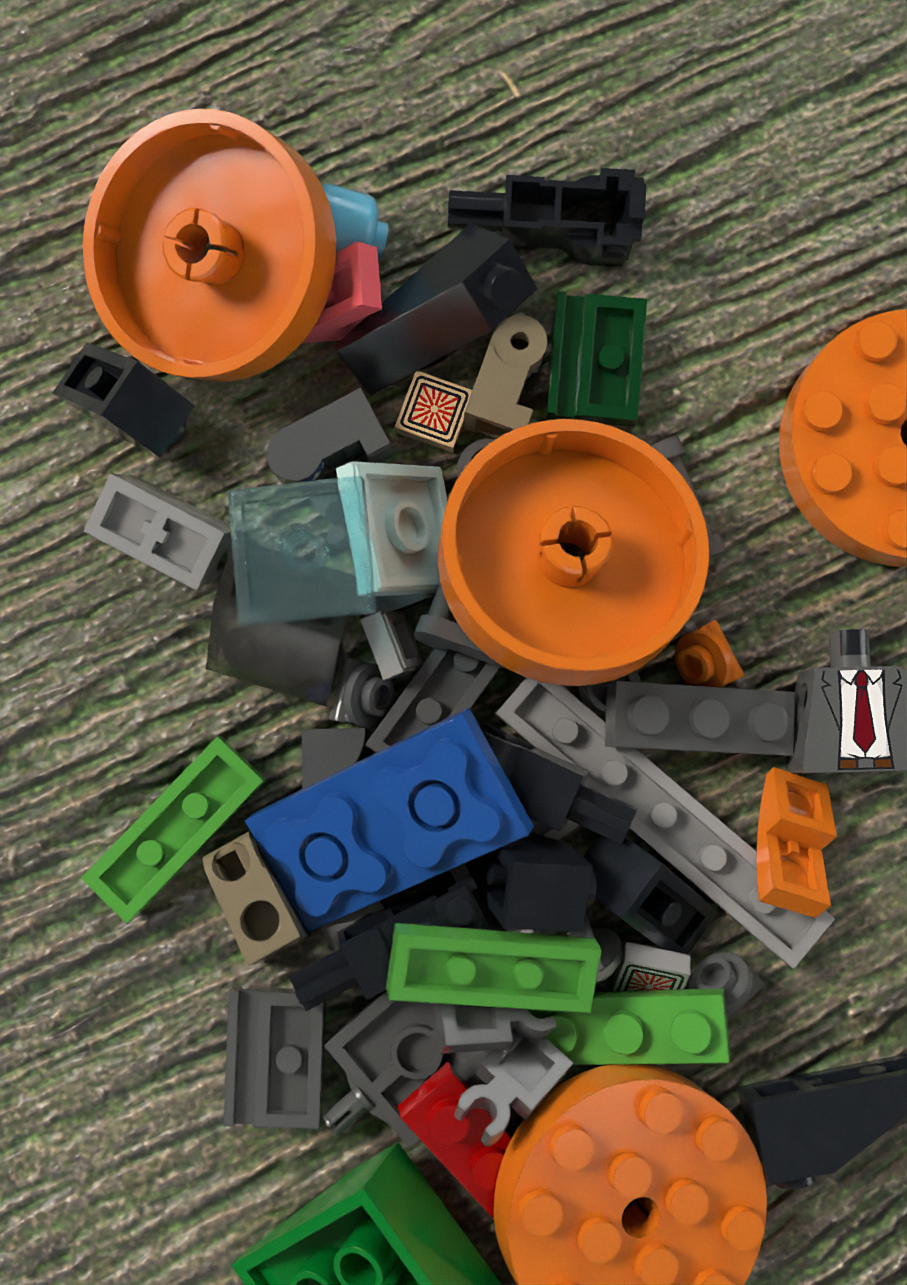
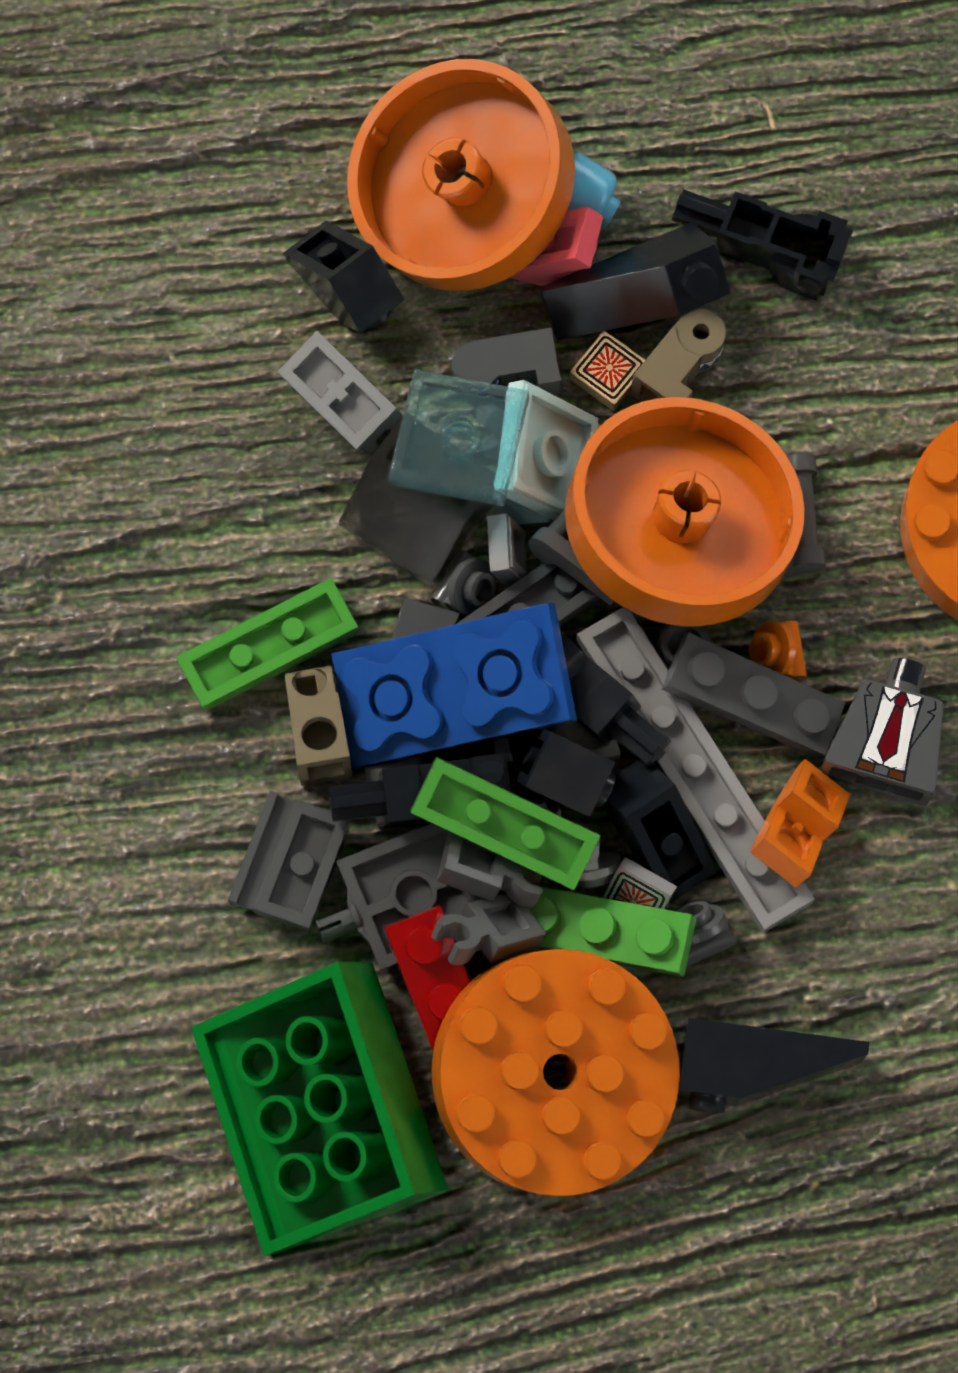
camera: 20 degrees right, 10 degrees down
(596, 358) = (766, 367): dark green plate -> none

